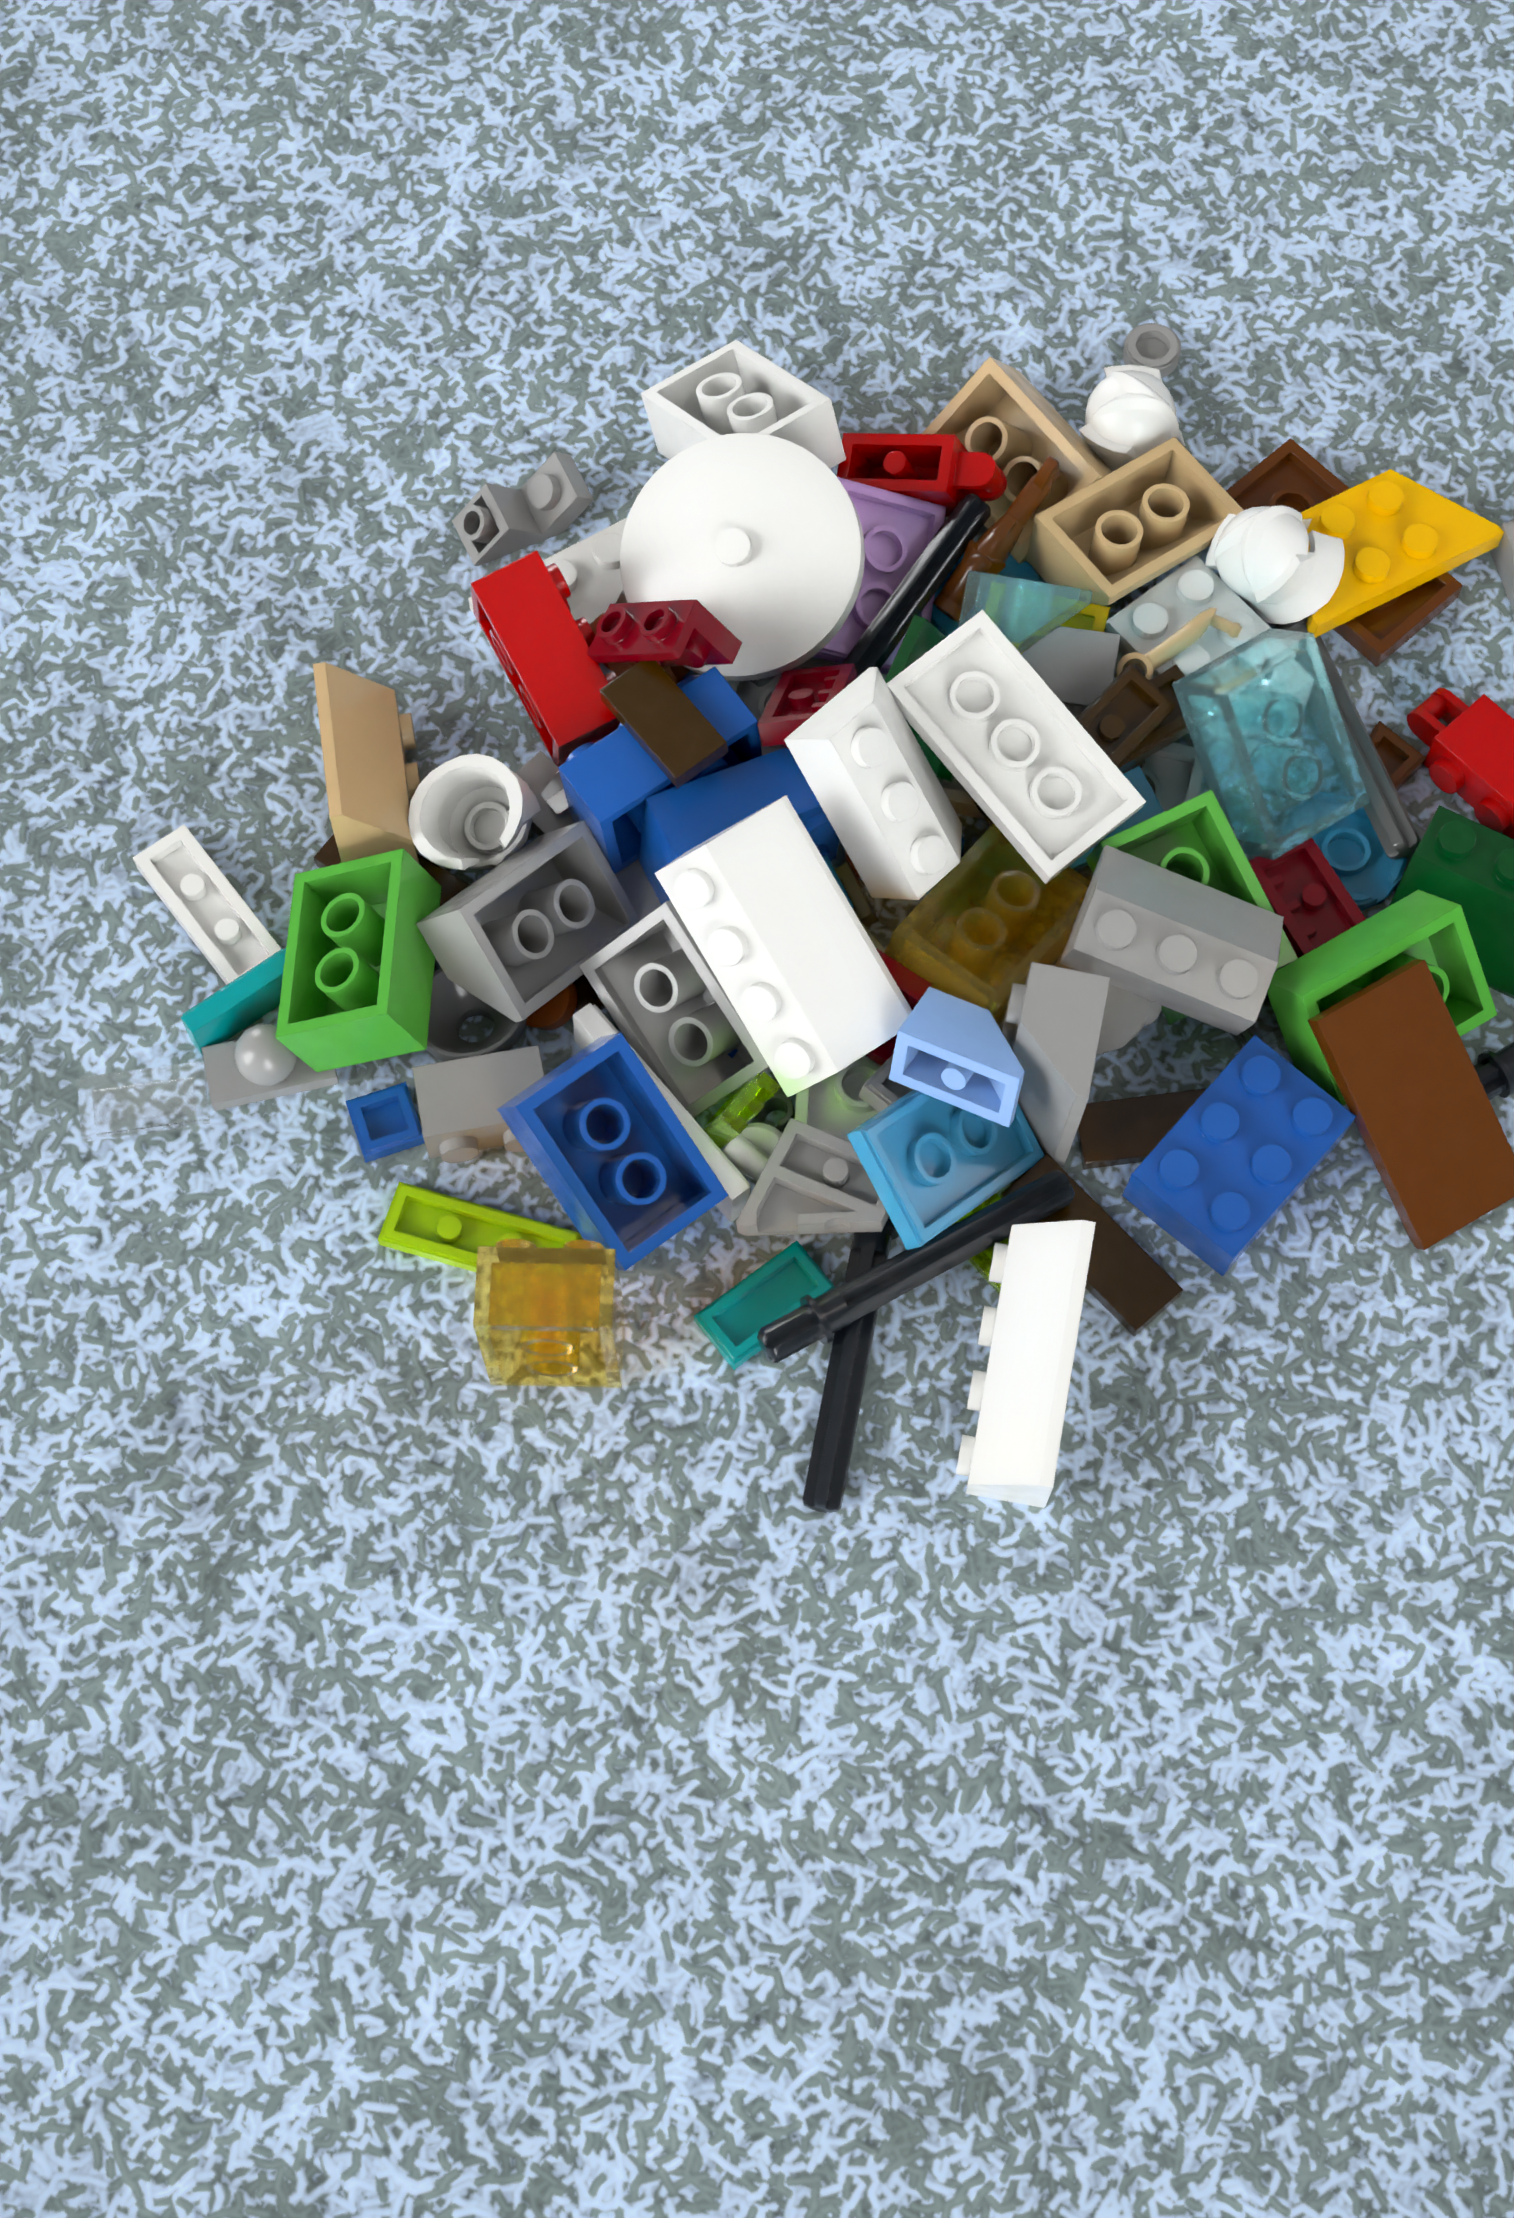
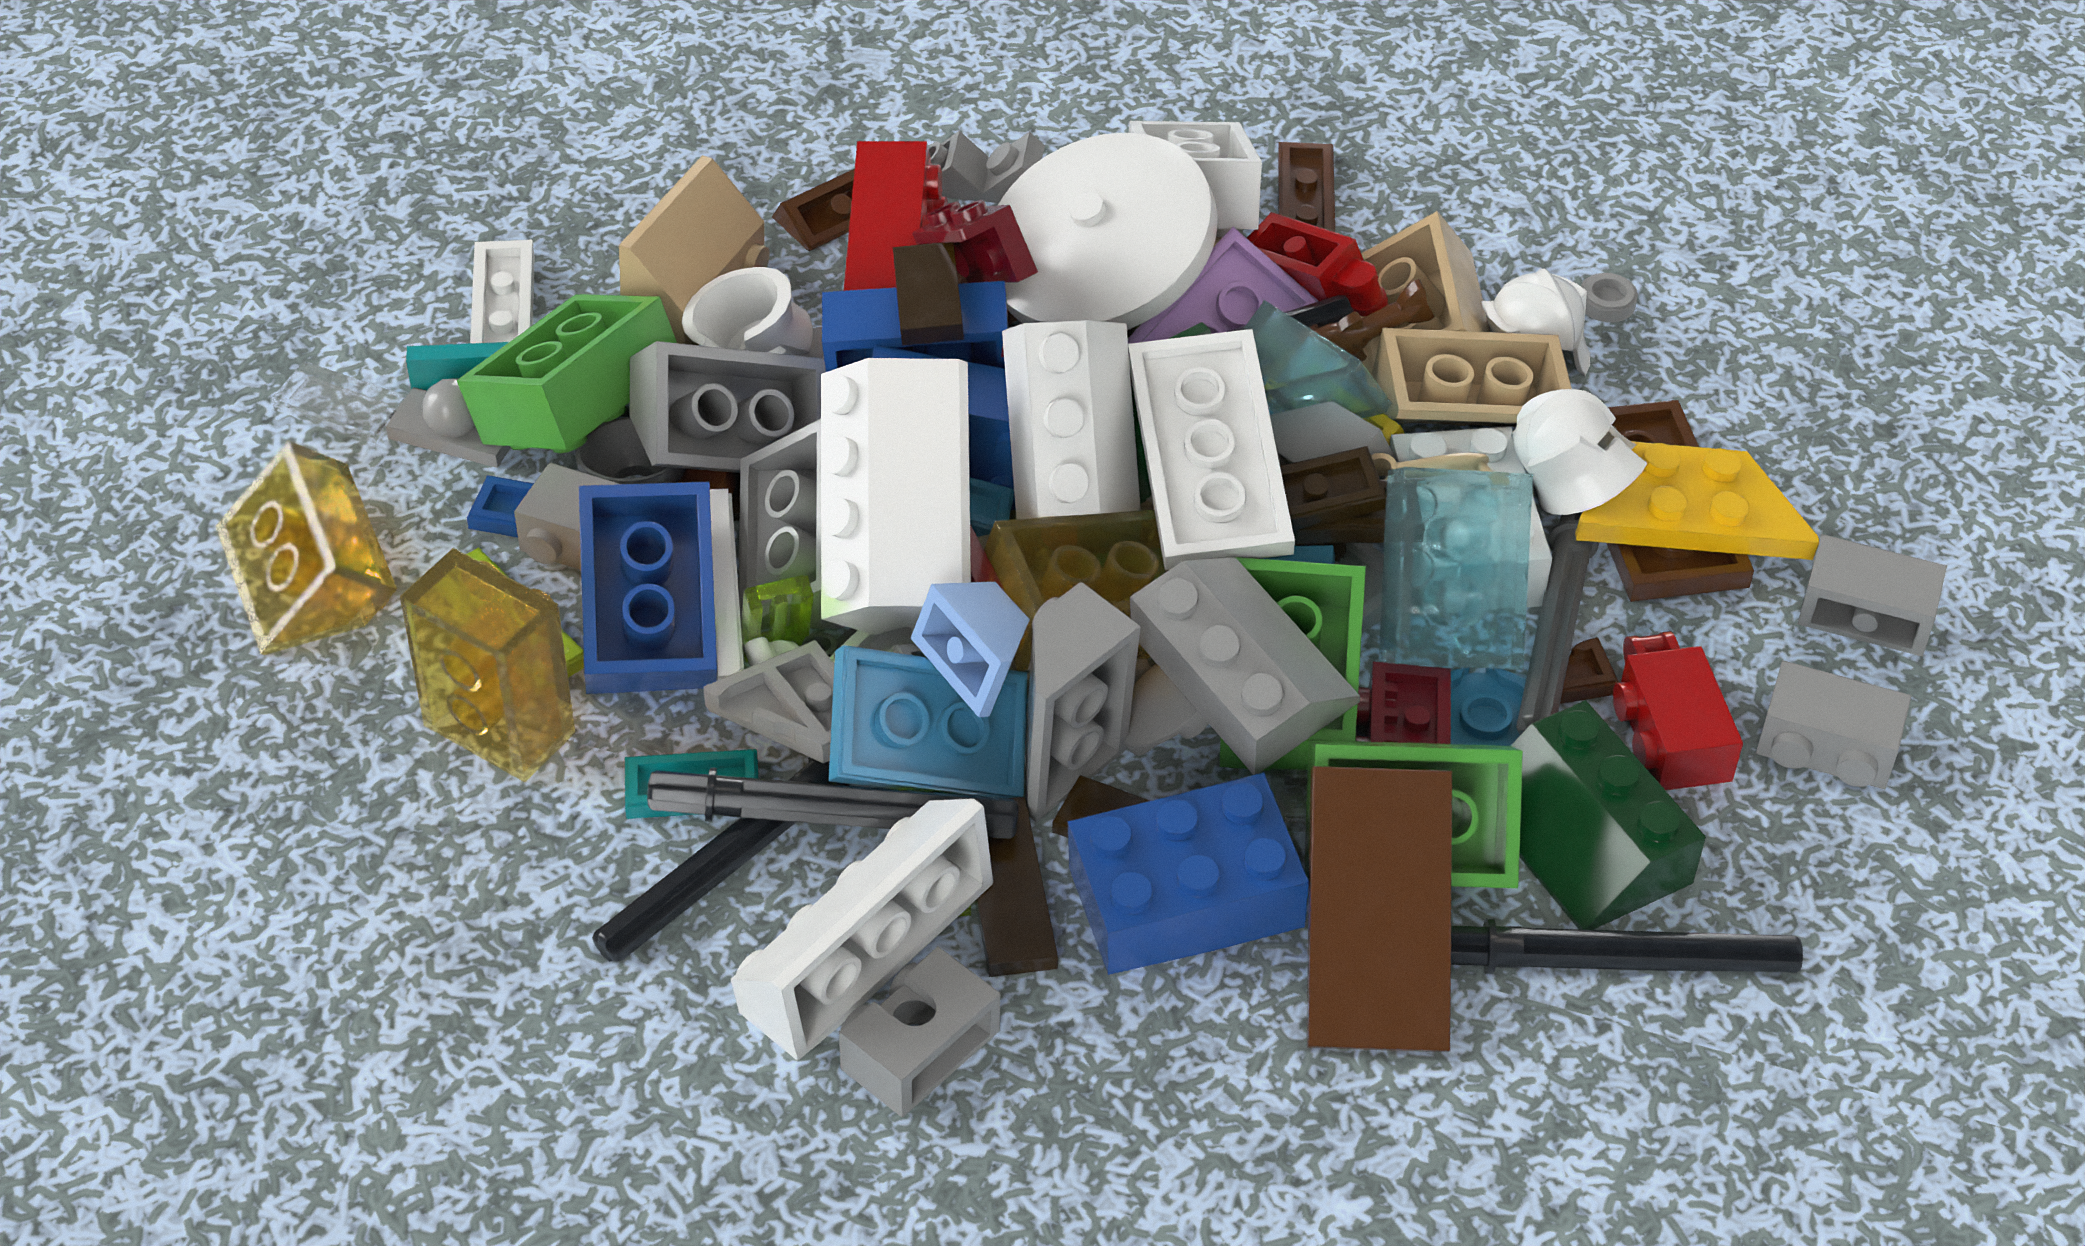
camera: 30 degrees right, 20 degrees down
(254, 1283) = (304, 551): none -> clear yellow slope
(422, 623) = (818, 213): none -> reddish brown slope
(812, 355) = (1307, 183): none -> reddish brown tile
(1151, 1395) = (907, 1062): none -> light grey brick

